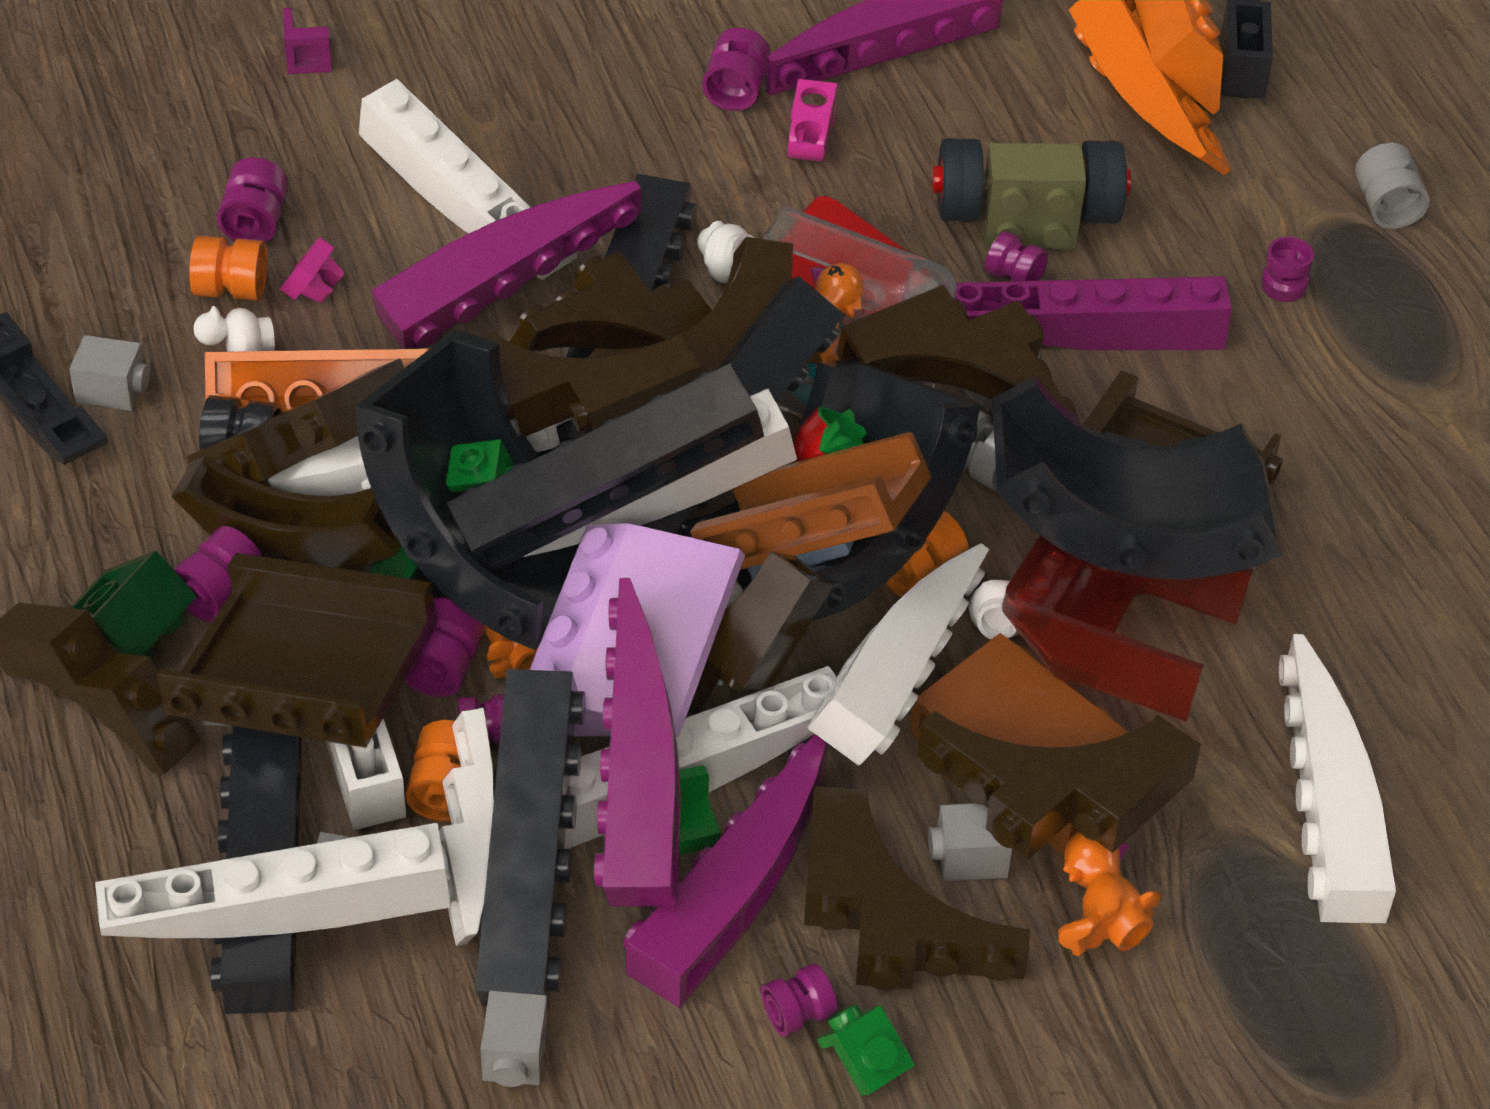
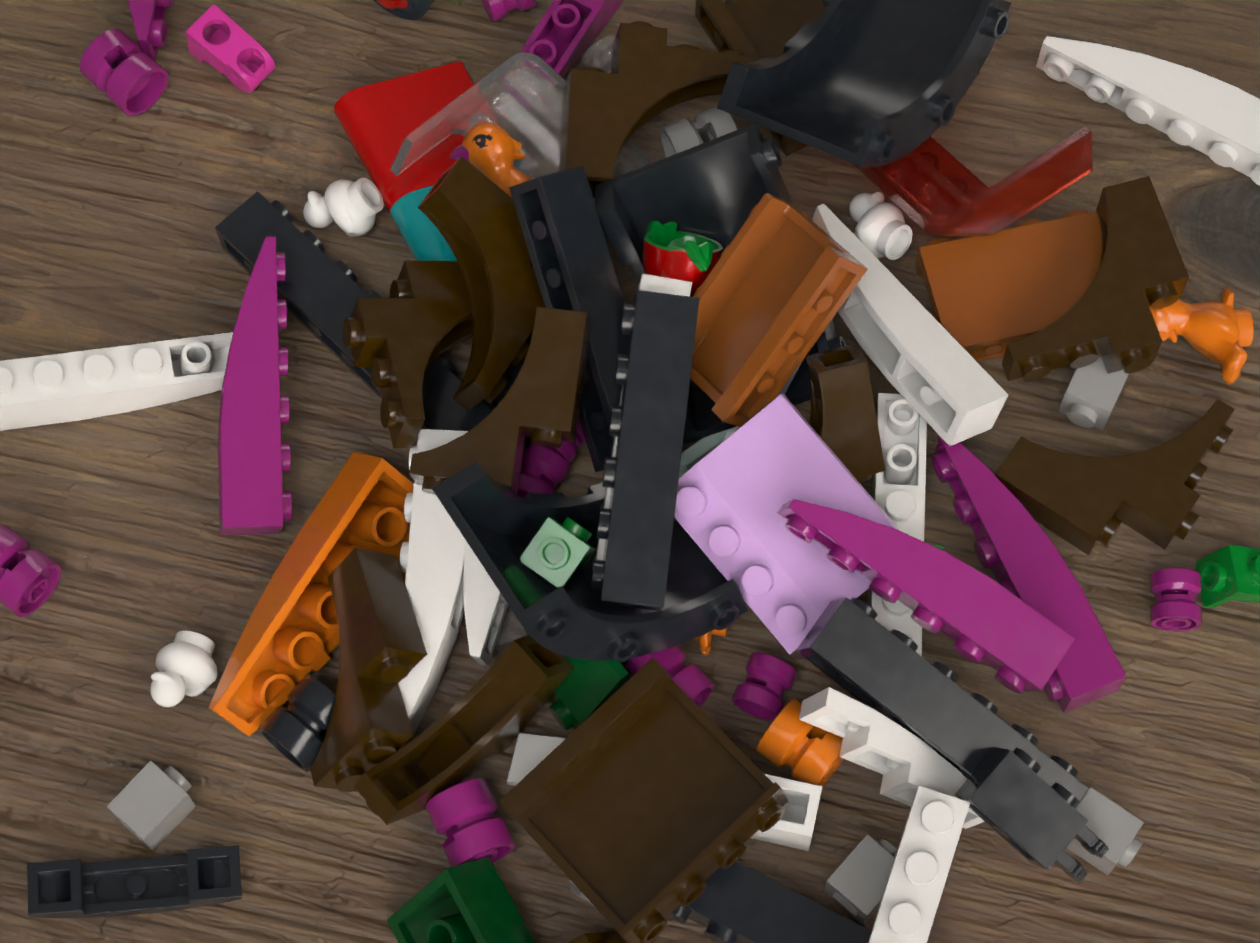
camera: 55 degrees left, 20 degrees up
(224, 268) = (89, 634): orange wheel -> none
(309, 272) = (133, 566): dark pink tile -> none
(475, 934) = (1029, 812): none -> black hinge

